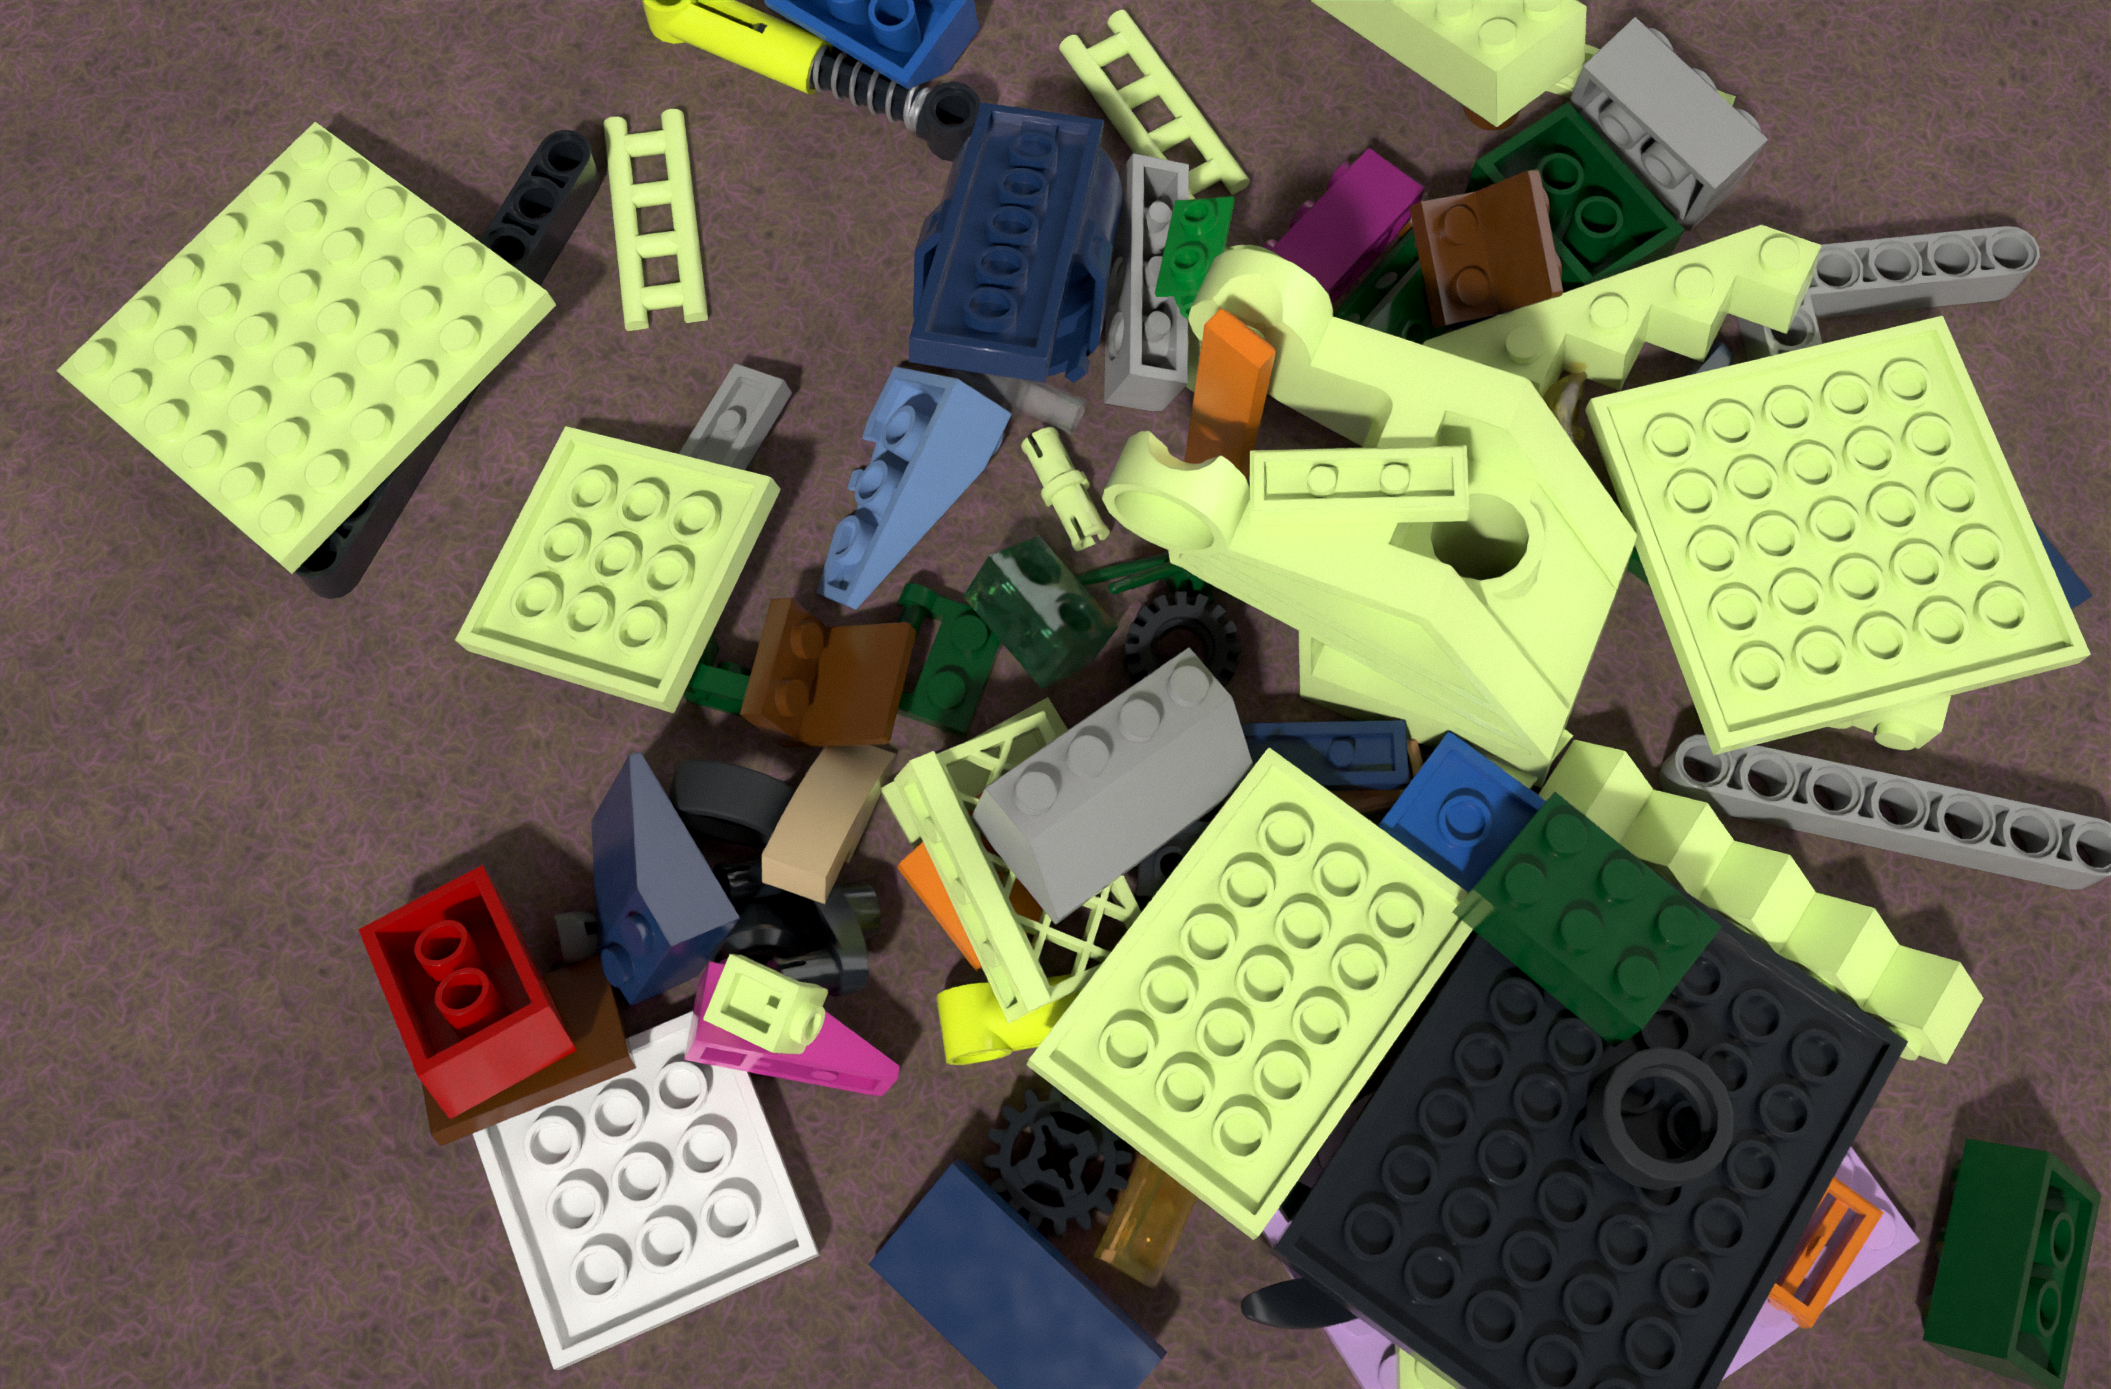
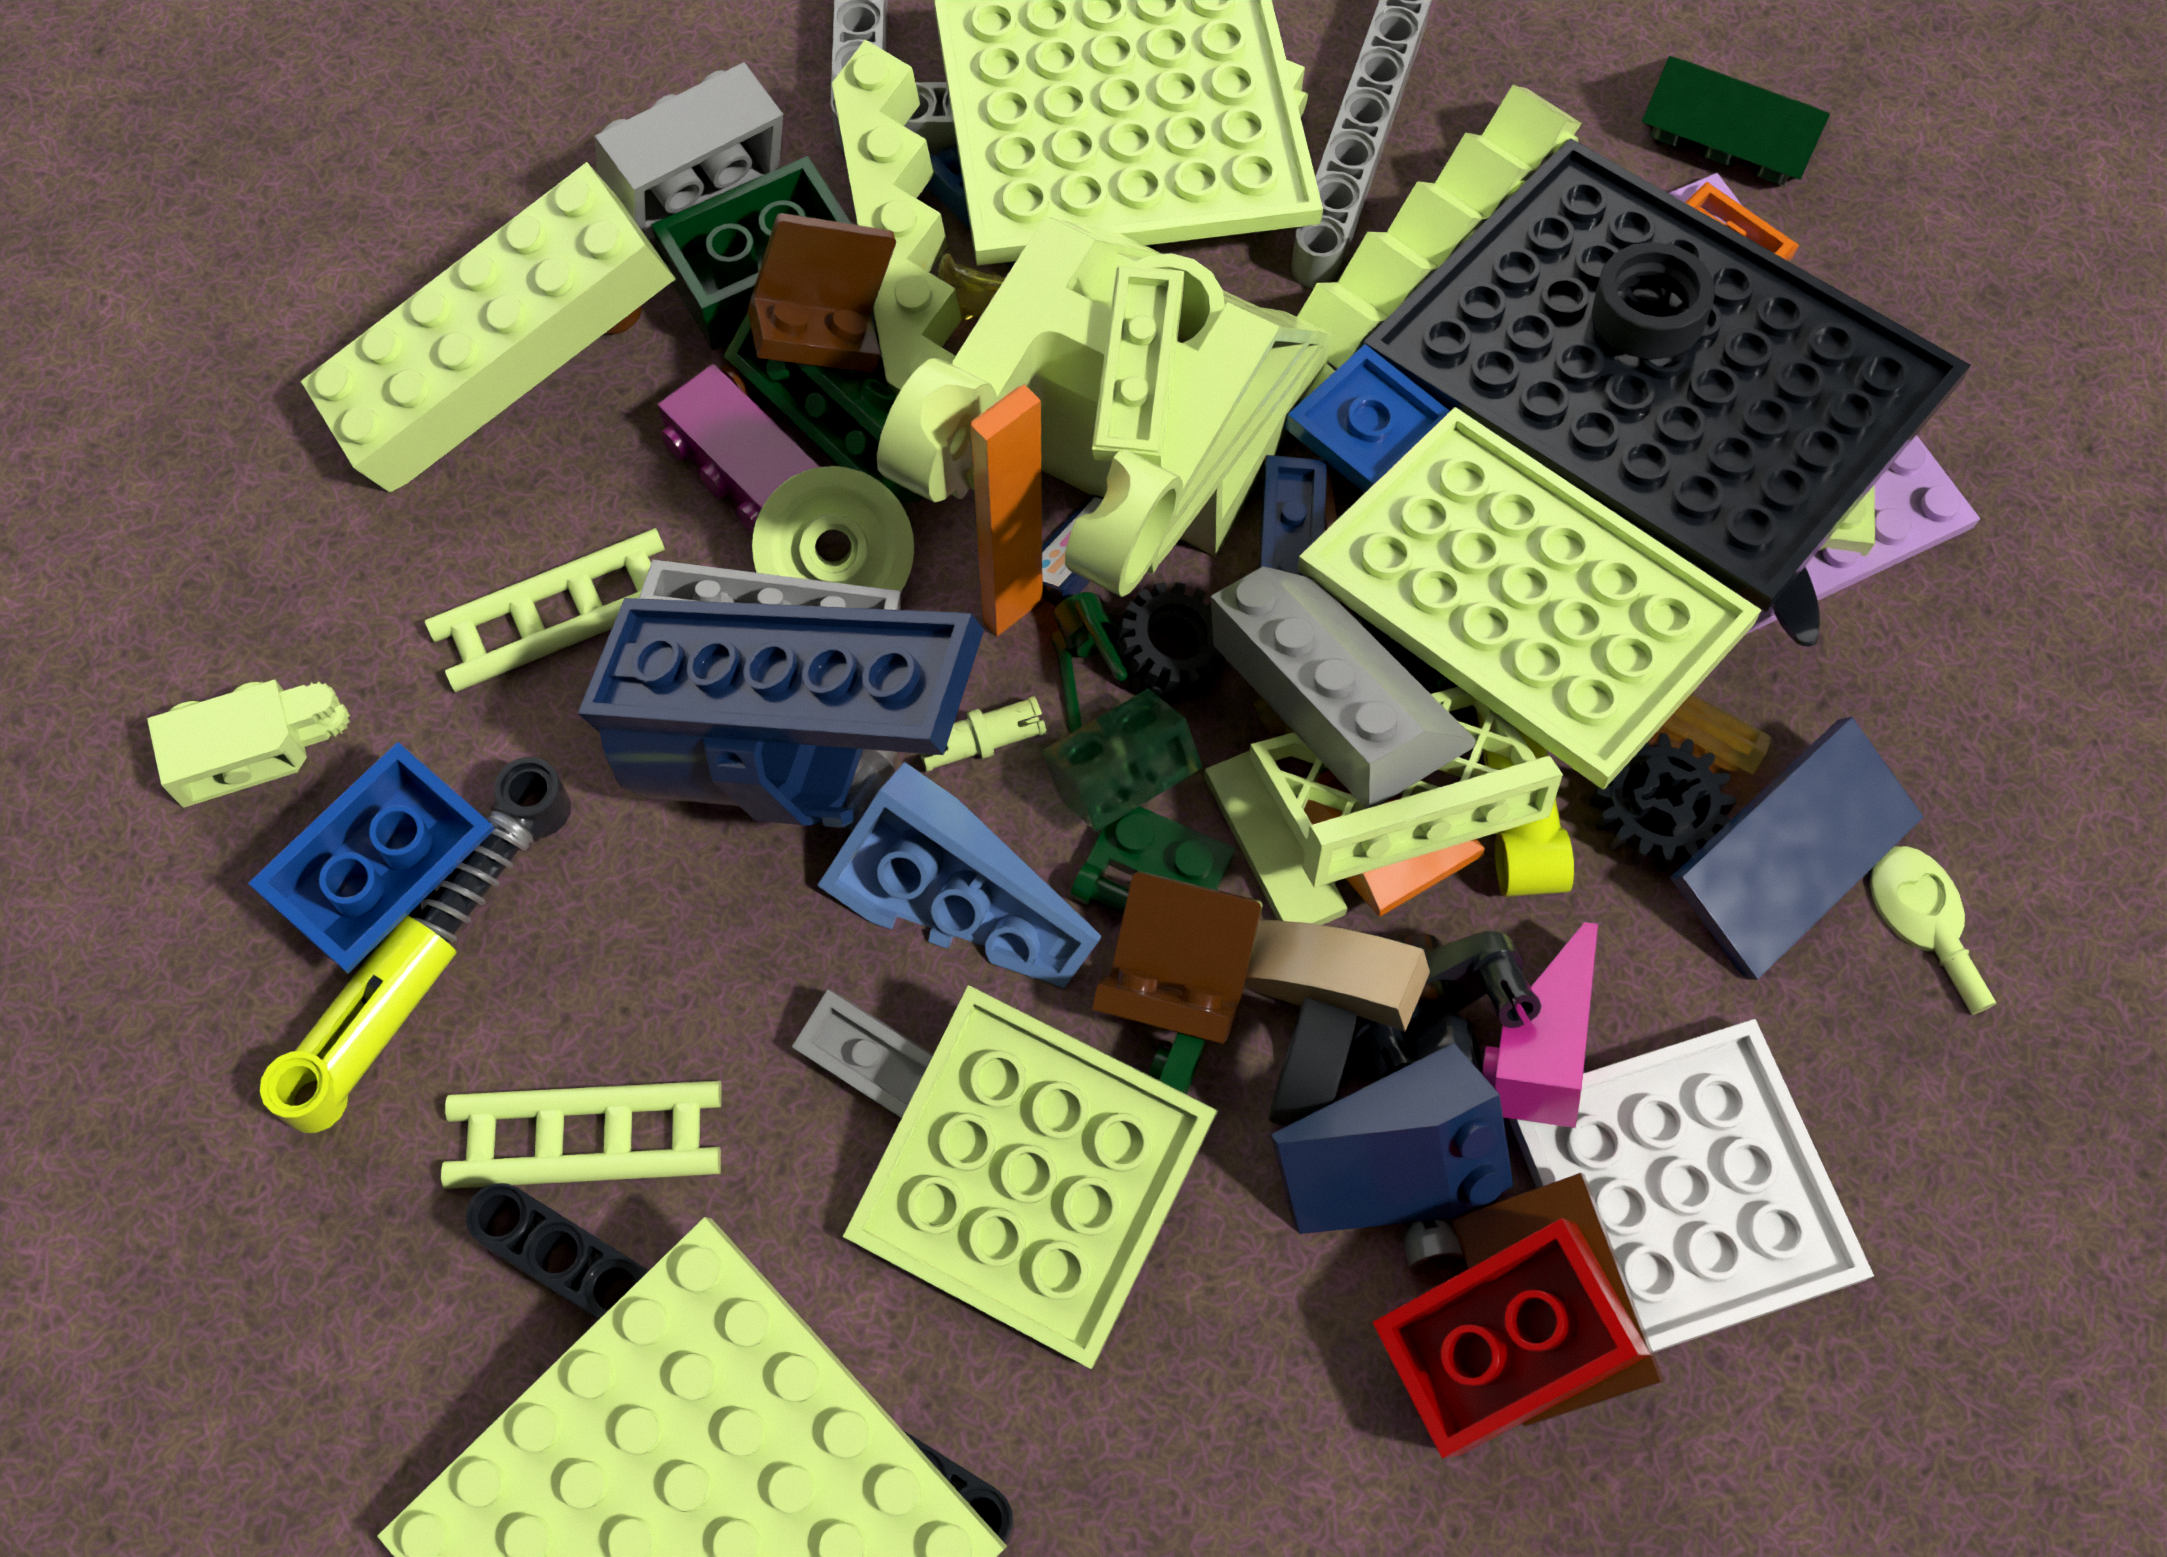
camera: 85 degrees left, 5 degrees down
(766, 1006) = (1555, 1014): yellowish green bracket -> none
(1193, 240) = (766, 553): green hinge -> none
(1587, 920) = (1481, 324): dark green brick -> none

